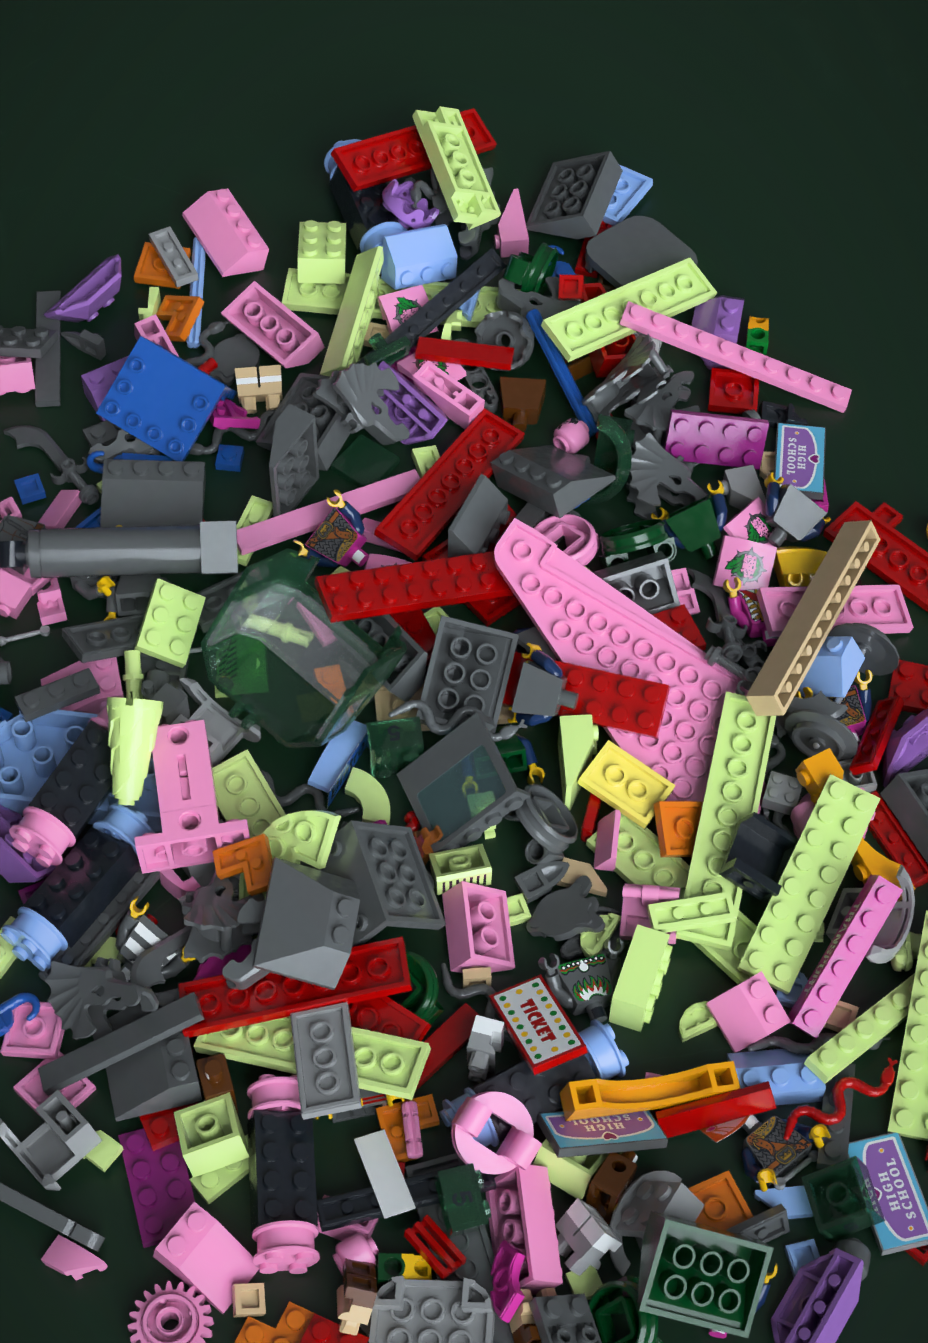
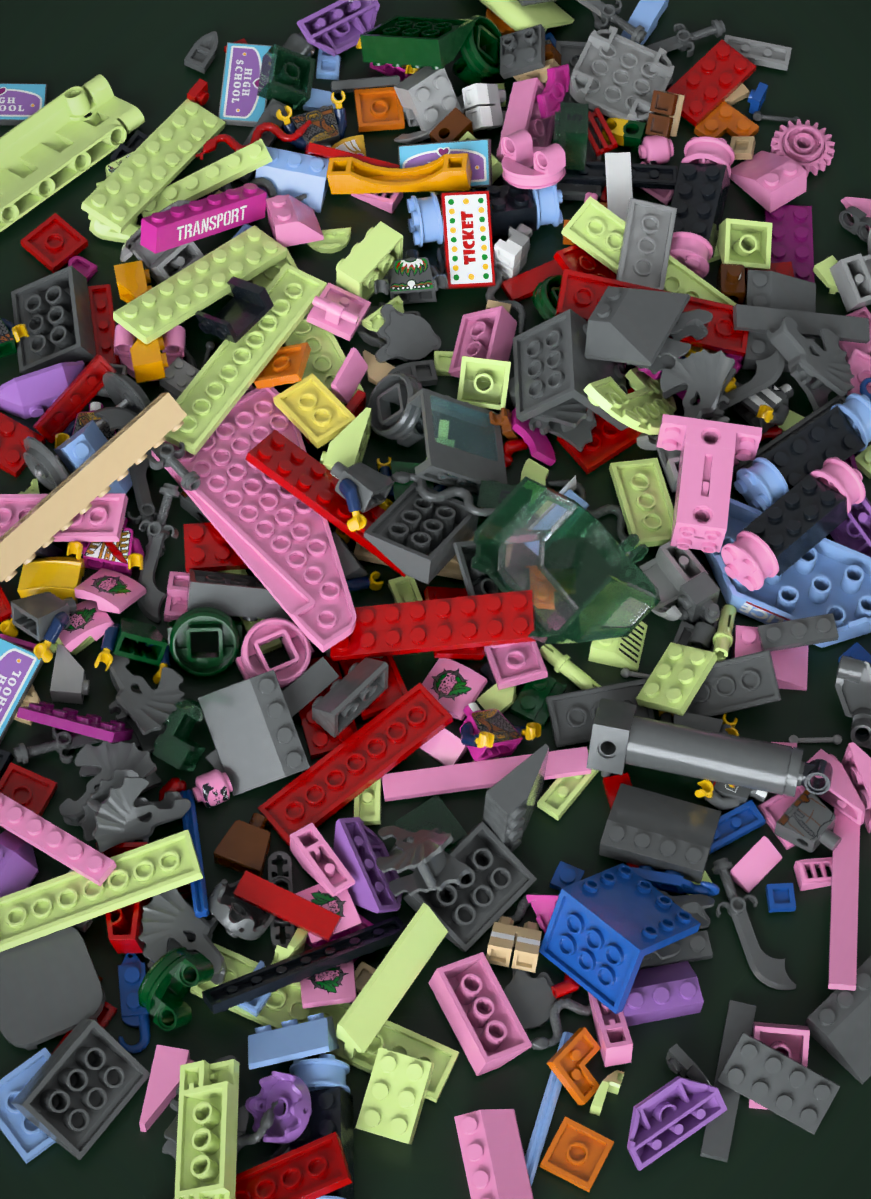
camera: 165 degrees left, 5 degrees up
(131, 740) = (743, 516): yellowish green cone -> none
(173, 256) = (564, 1143): light grey plate -> none
(247, 856) = (660, 400): orange plate -> none
(387, 352) = (373, 923): clear green tile -> none
(571, 287) = (147, 929): red plate -> none
(692, 912) = (309, 284): yellowish green plate -> none

